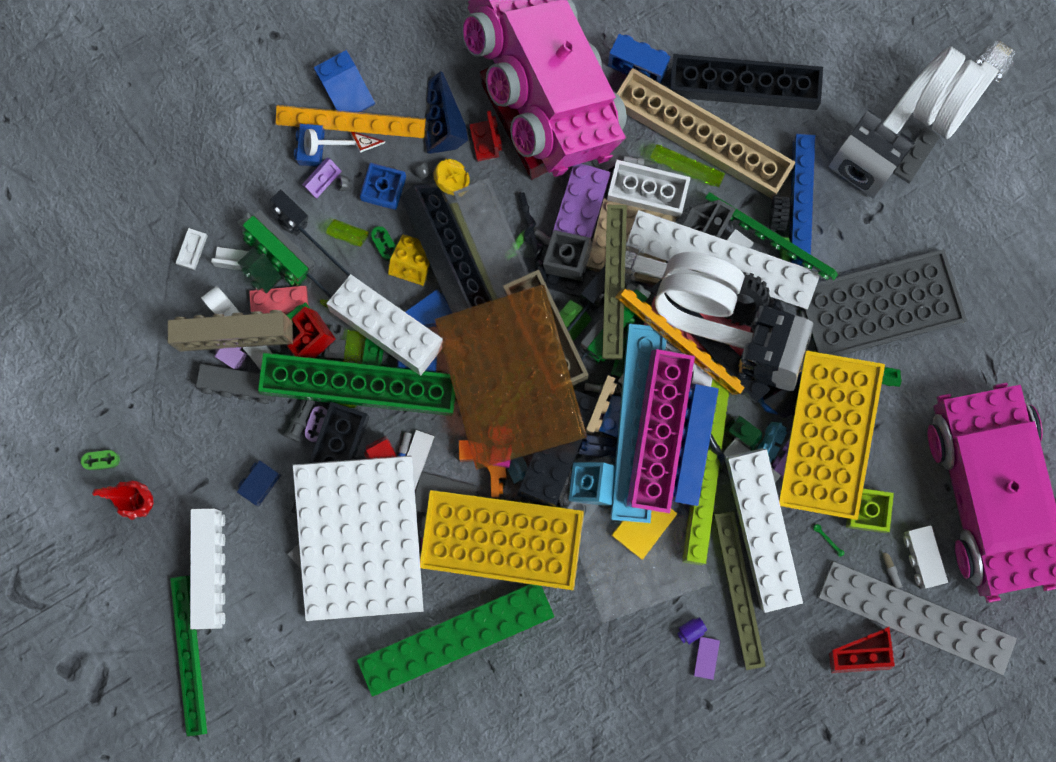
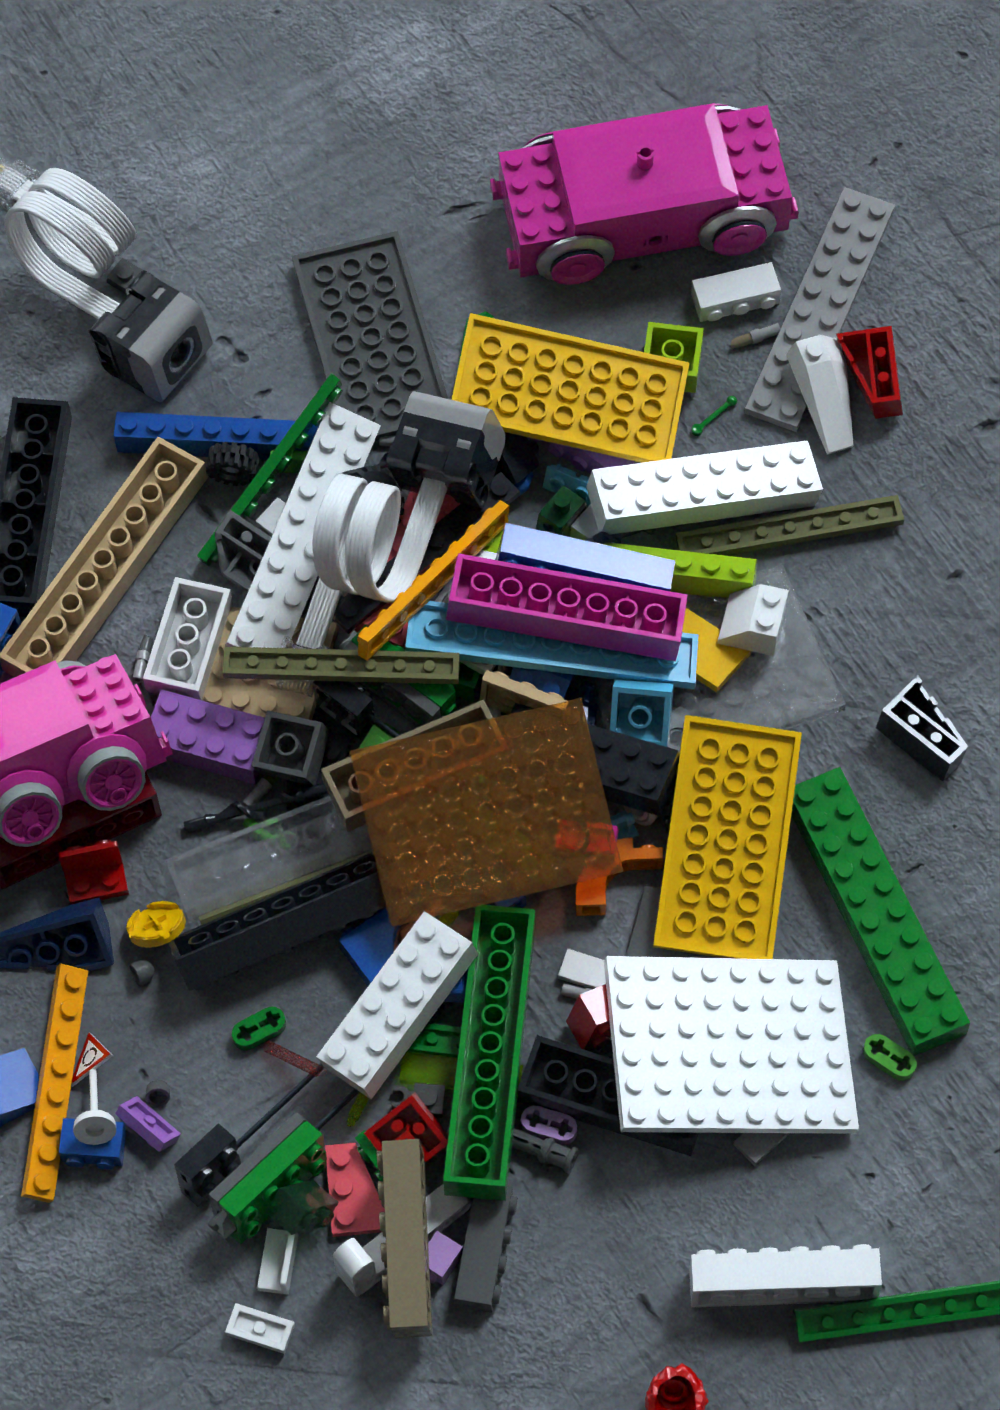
camera: 90 degrees left, 15 degrees down
(258, 483) = (644, 1208): dark blue brick -> none
(347, 233) = (240, 1082): clear neon green plate -> none
(353, 640) = (885, 1062): none -> bright green beam
(363, 264) = (288, 1052): none -> clear red piece
(378, 175) = (156, 1013): blue brick -> none
(409, 261) = (288, 983): yellow bracket -> none
(584, 675) = (922, 731): none -> black wedge
(663, 561) = (754, 619): none -> white slope
(687, 165) = (152, 588): clear neon green plate -> none
(692, 630) = (850, 590): dark purple brick -> none
(706, 658) = (888, 574): medium lavender tile -> none
(852, 617) = (825, 388): none -> white wedge

